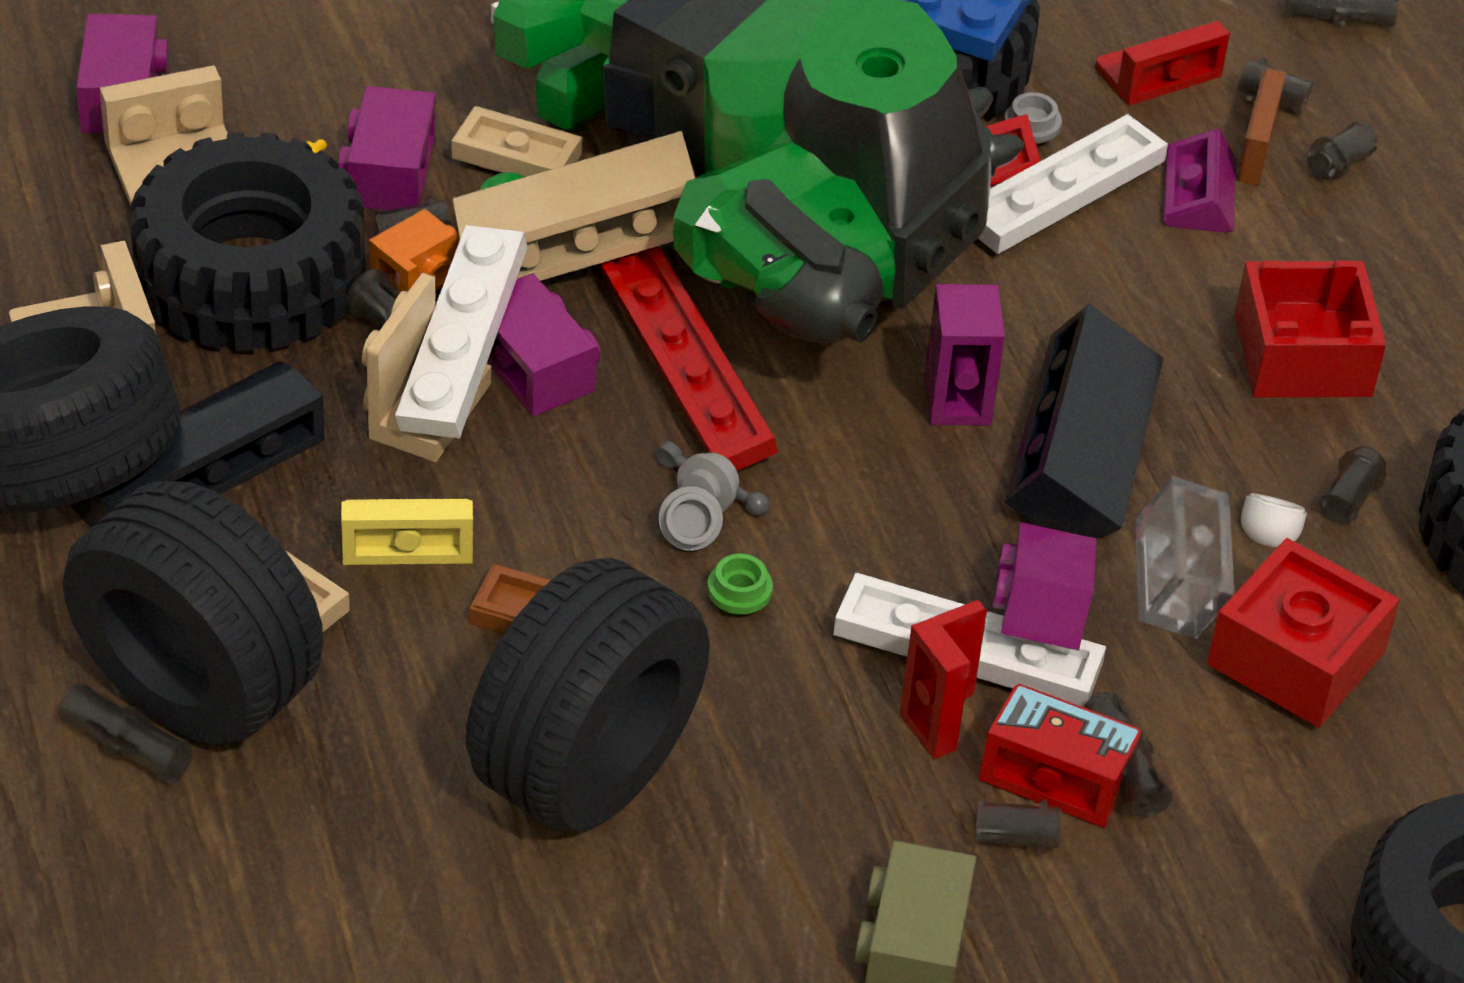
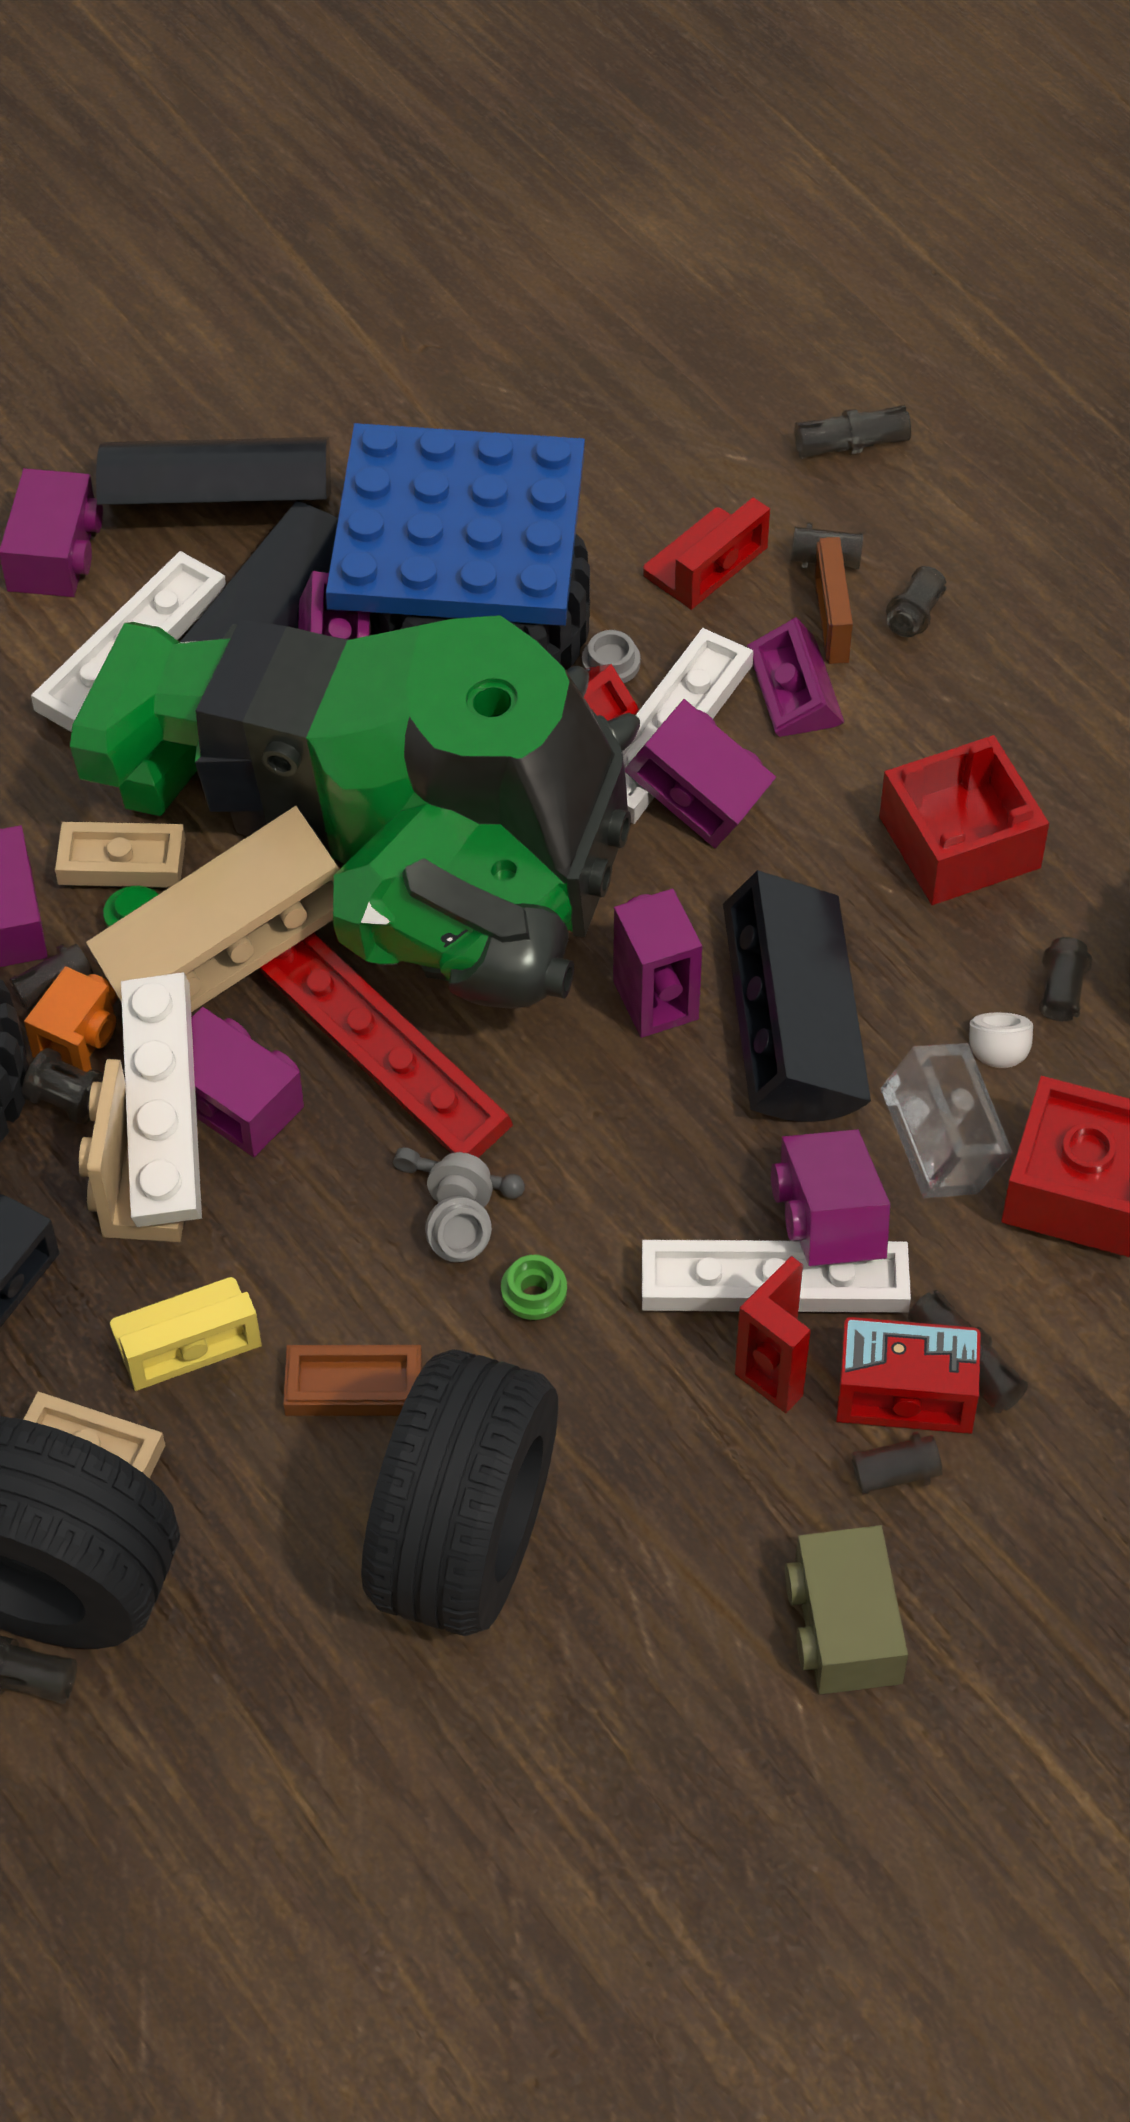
camera: 15 degrees left, 10 degrees up
(1072, 221) = (700, 773): none -> magenta brick

